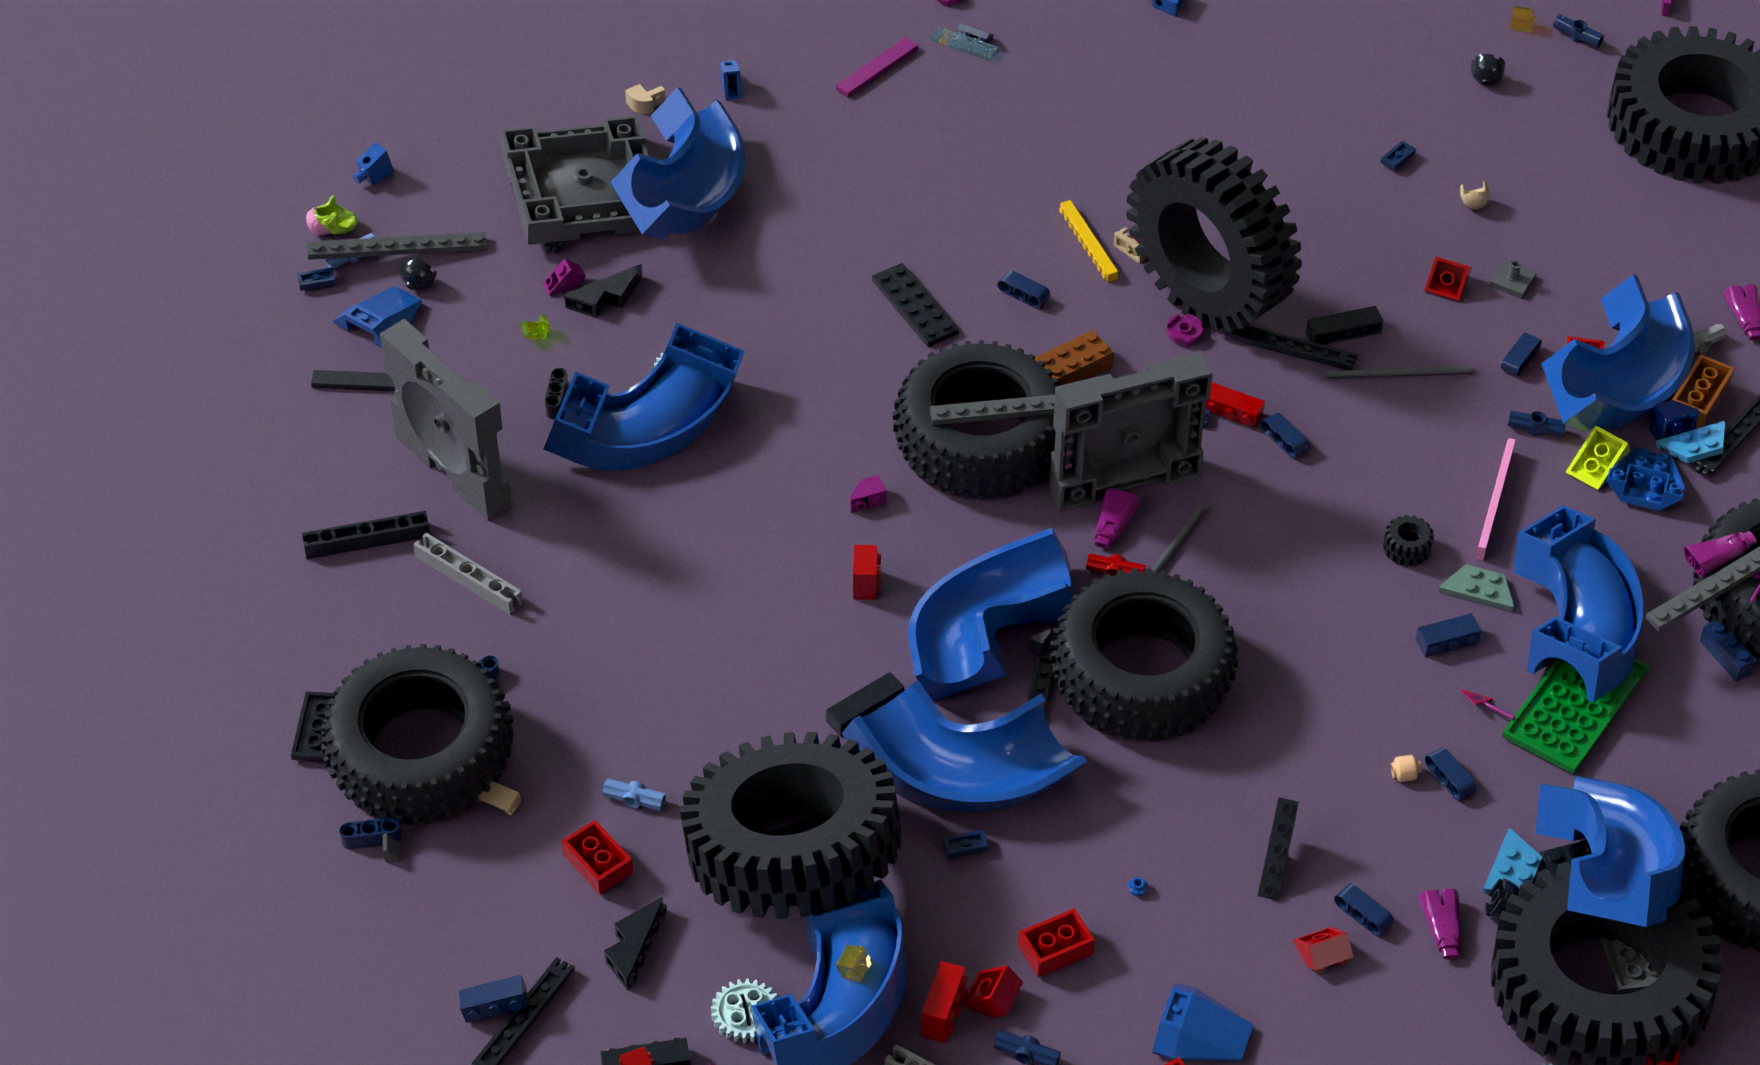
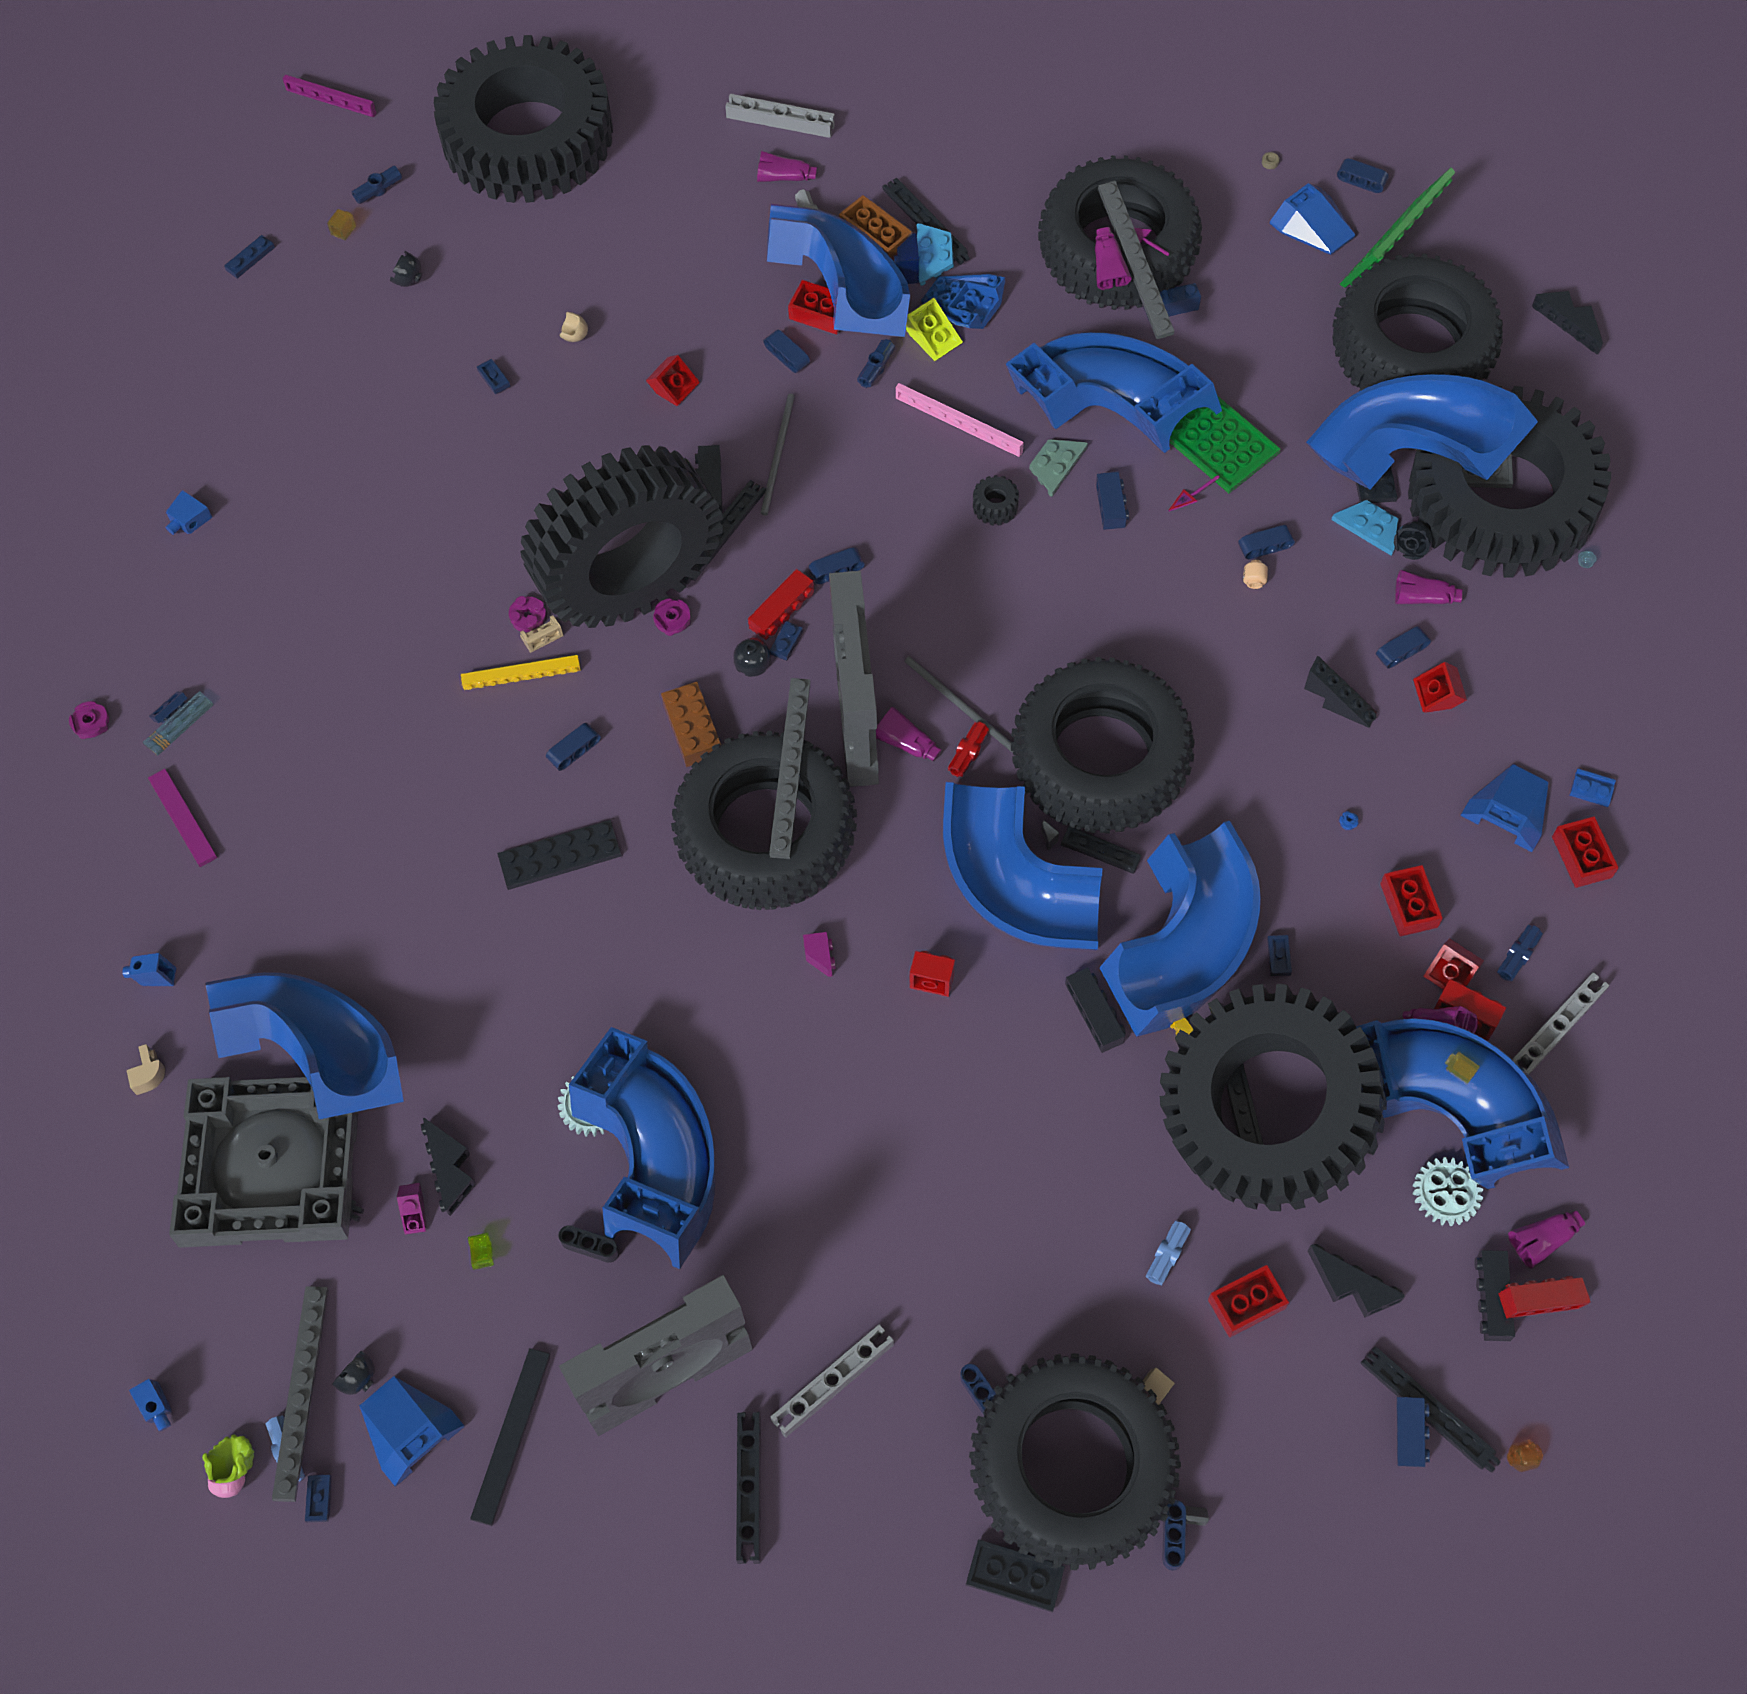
camera: 75 degrees left, 15 degrees up
(919, 972) = (1454, 1016): none -> magenta piece
(1512, 278) = (685, 332): dark grey tile -> none

